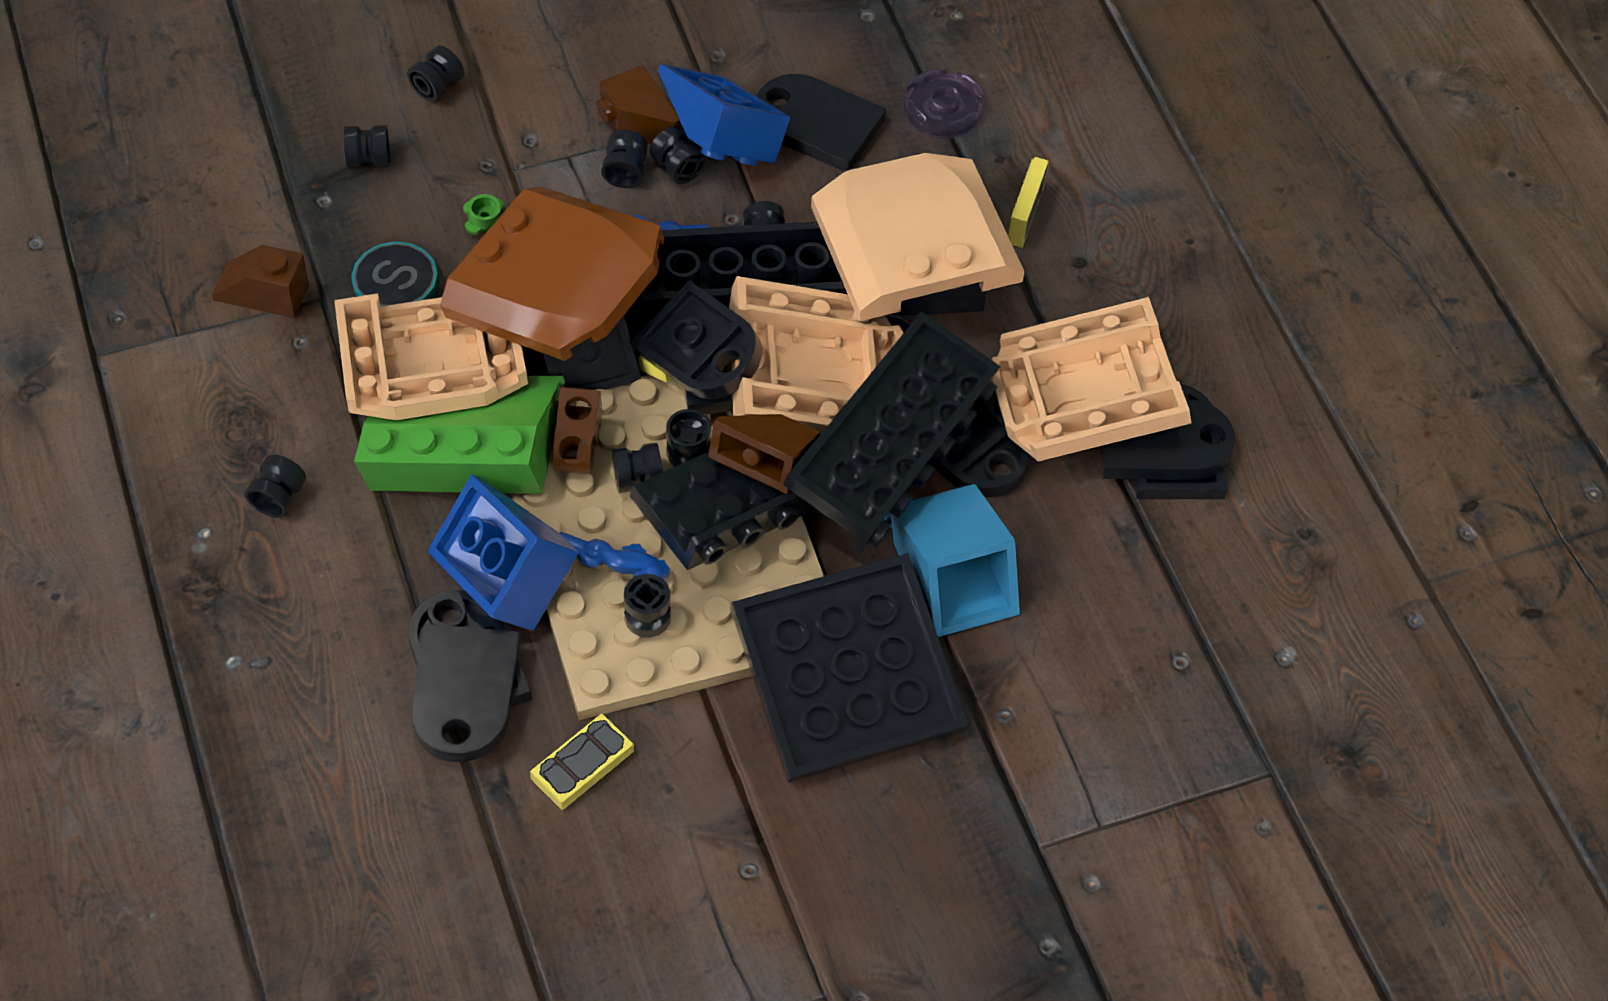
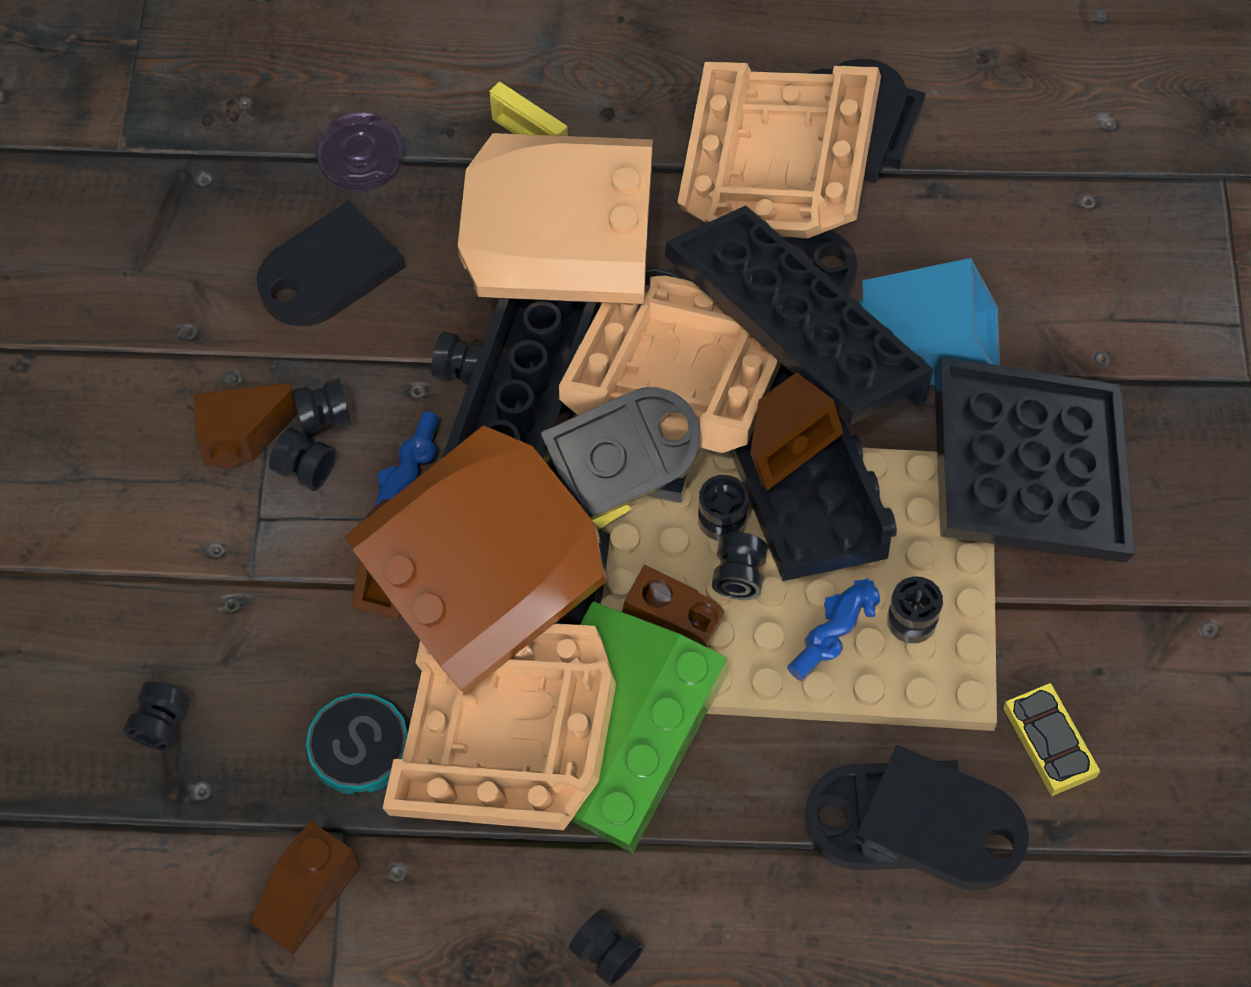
camera: 65 degrees left, 5 degrees up
(435, 73) = (83, 612): black wheel -> none
(482, 213) = (310, 610): bright green plate -> none
(502, 554) = (794, 733): blue slope -> none
(724, 116) = (299, 342): blue slope -> none

